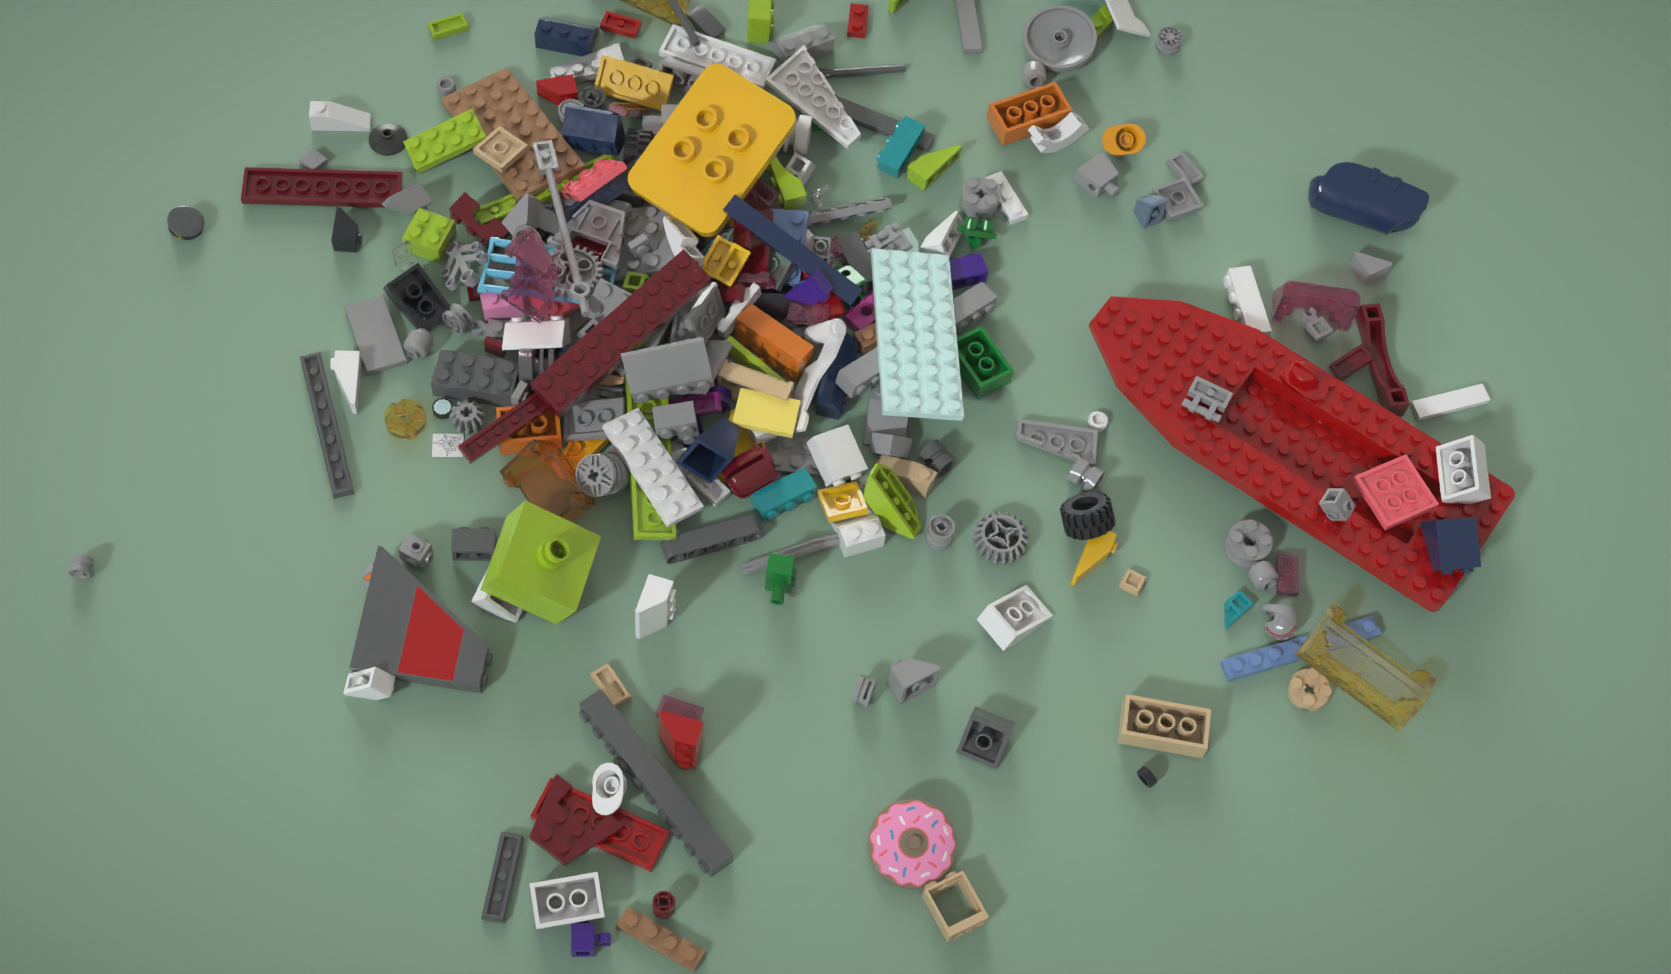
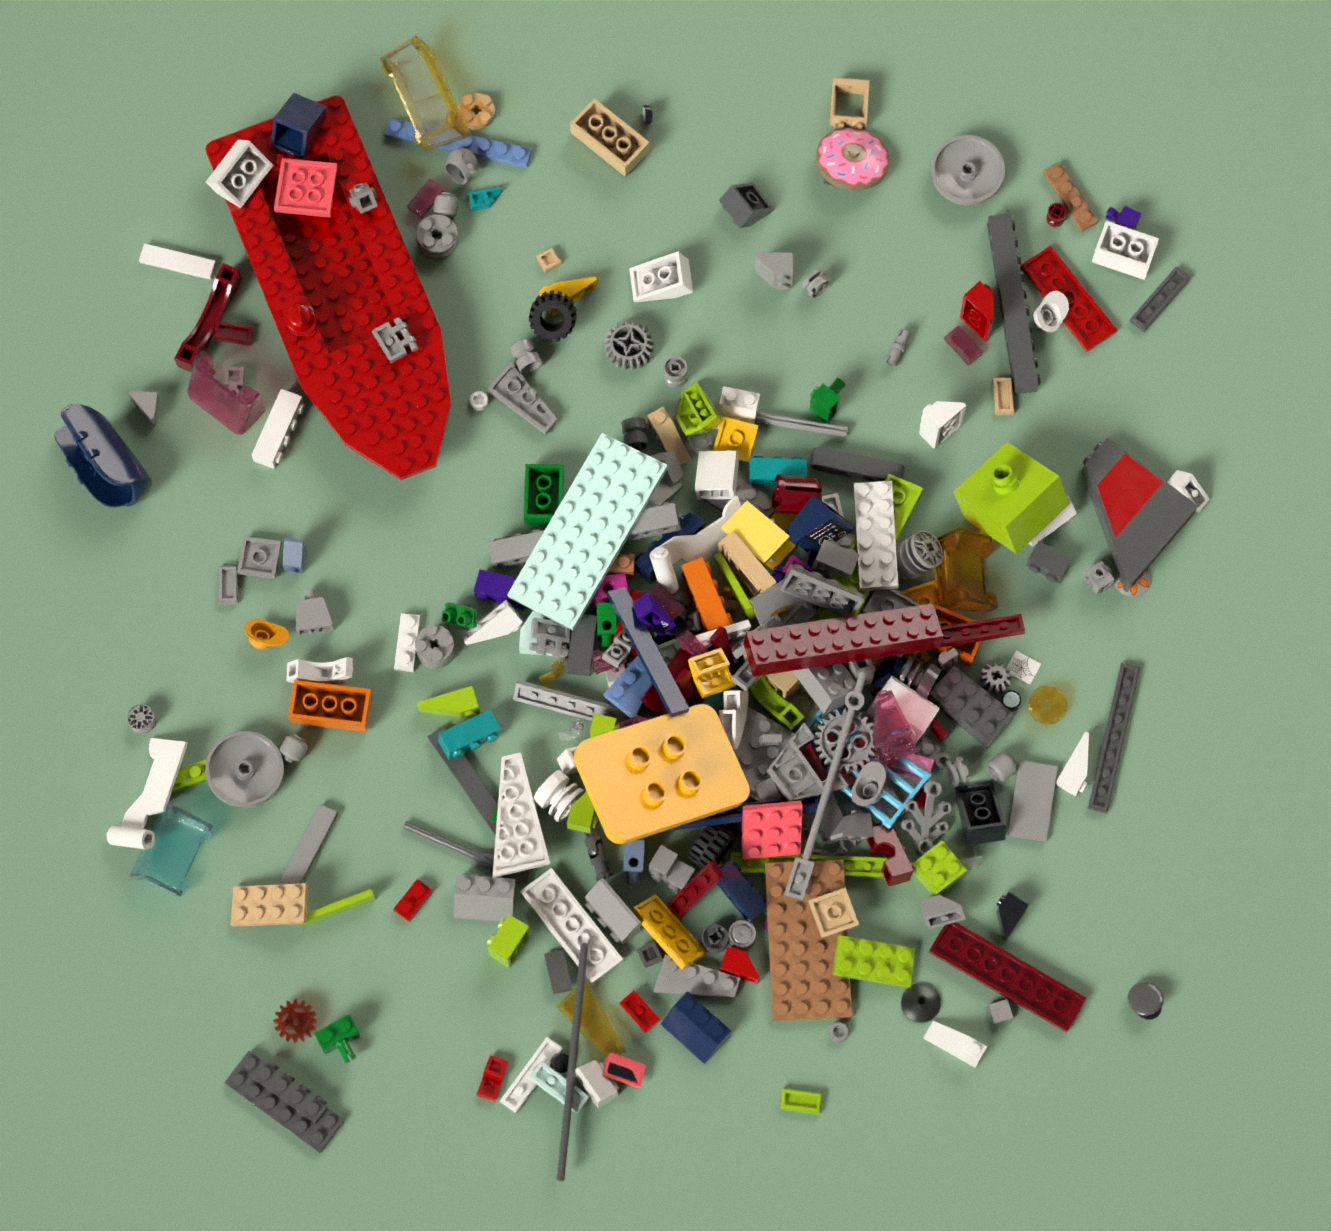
camera: 140 degrees left, 10 degrees up
(564, 834) = (1101, 302): dark red wing -> none
(744, 675) = (897, 347): none -> light grey pin
(785, 897) = (967, 170): none -> light grey dish

